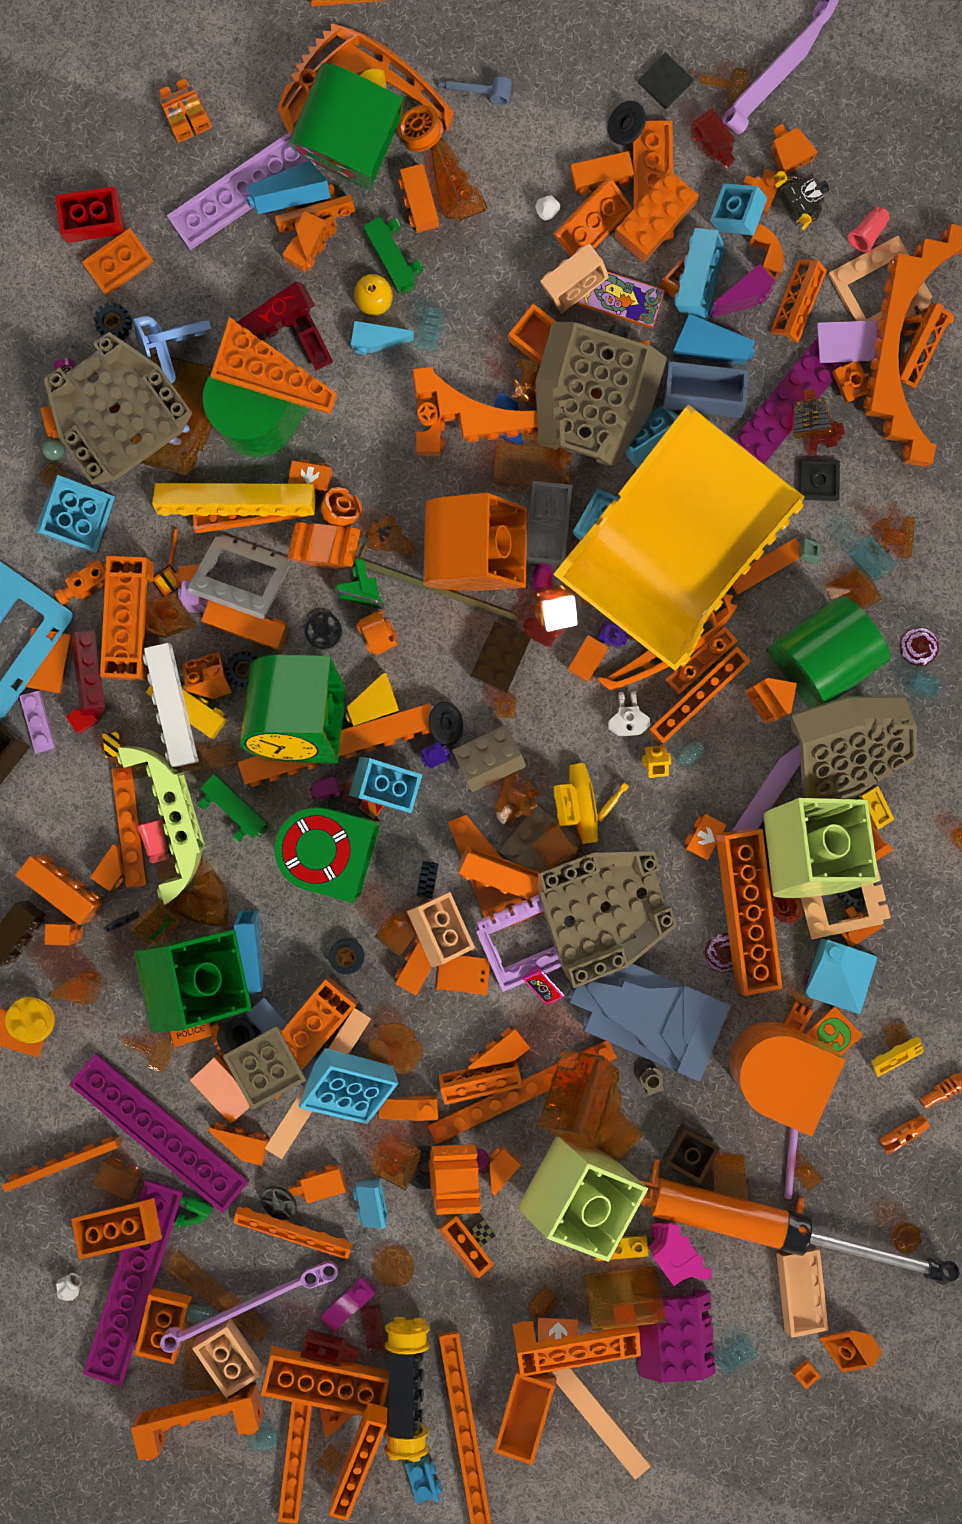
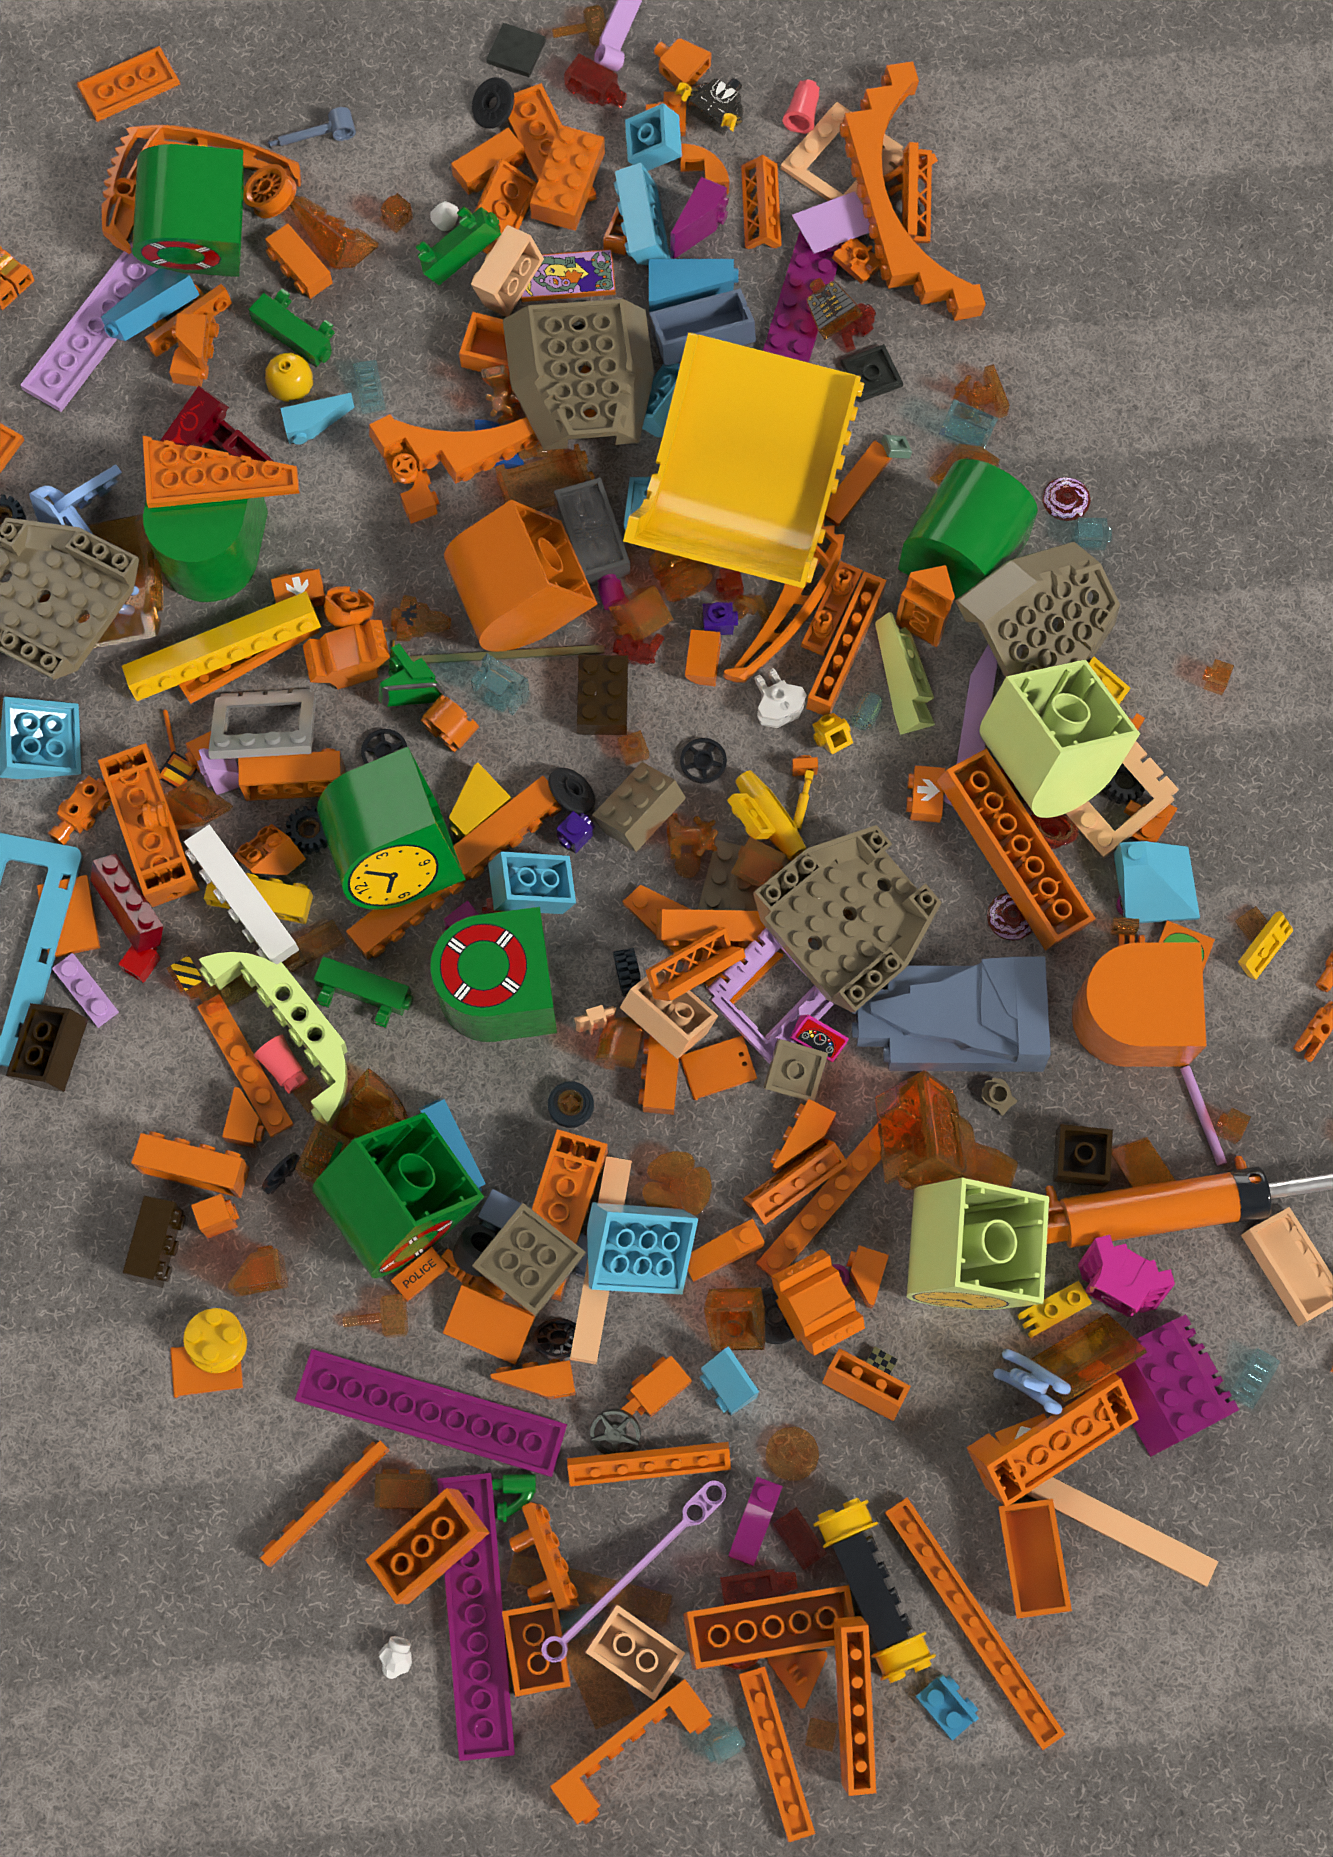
camera: 25 degrees left, 15 degrees down
(130, 620) = (155, 815): none -> orange wheel
(197, 1271) = (554, 1565): none -> orange plate
(266, 1120) = (555, 1339): none -> black wheel
(389, 904) = (595, 1018): none -> light nougat piece
(427, 619) = (504, 684): none -> clear light blue panel
(472, 911) = (698, 972): none -> orange fence
(509, 185) = (393, 209): none -> clear orange brick
(515, 1003) = (795, 1070): none -> dark tan plate
(541, 1303) = (991, 1415): clear orange brick -> none
(546, 241) = (460, 245): none -> green brick
(553, 738) = (703, 760): none -> black wheel
(580, 1302) = (1034, 1383): none -> light blue piece
(625, 775) = (804, 763): none -> orange plate
(731, 736) = (905, 676): none -> yellowish green wedge

